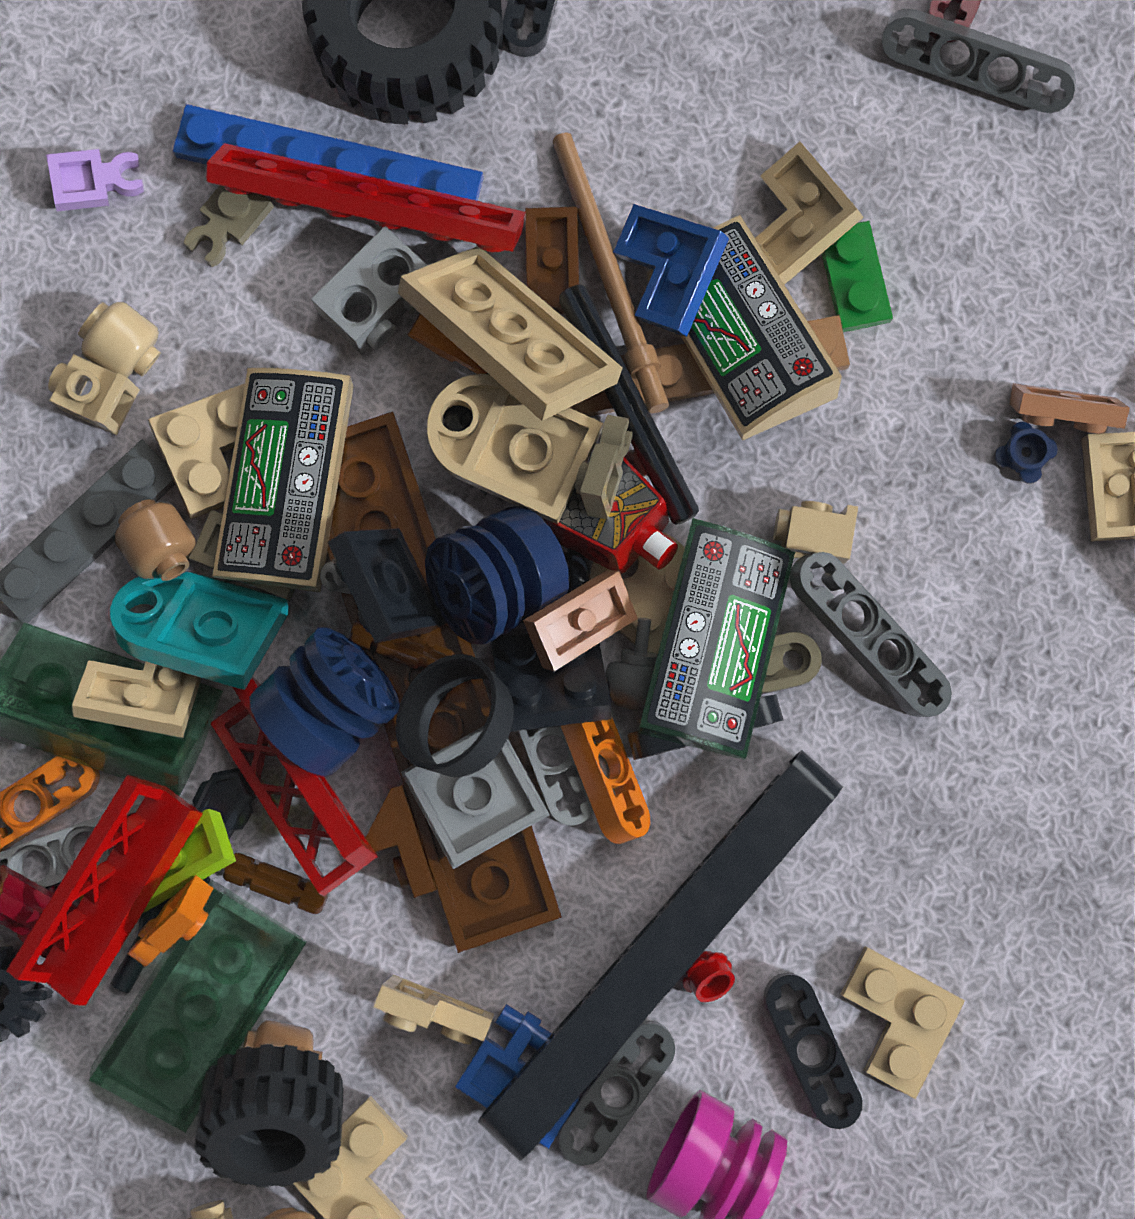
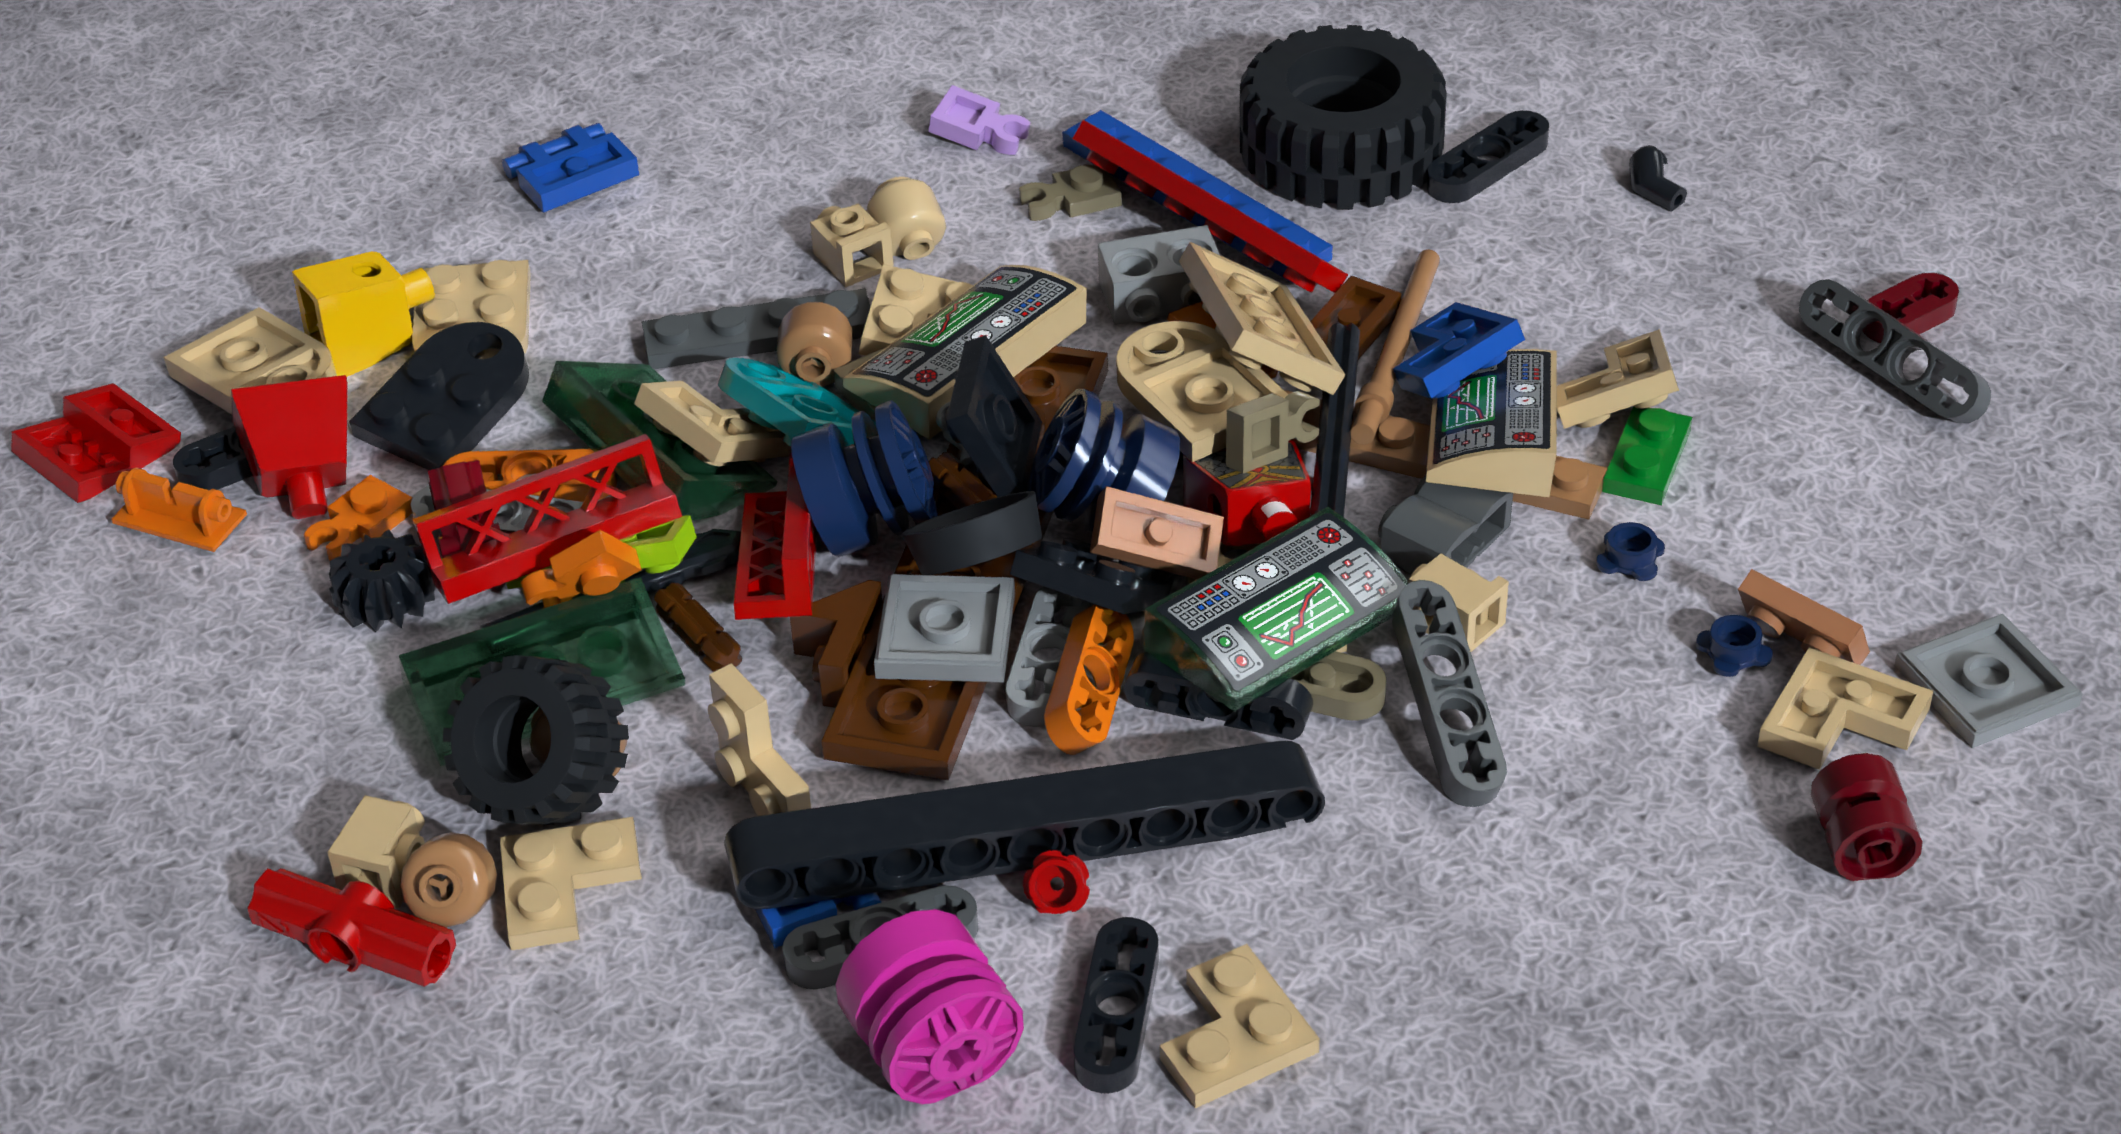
camera: 35 degrees right, 40 degrees down
(760, 467) = (1445, 522): none -> dark grey brick
(913, 385) = (1631, 551): none -> dark blue plate

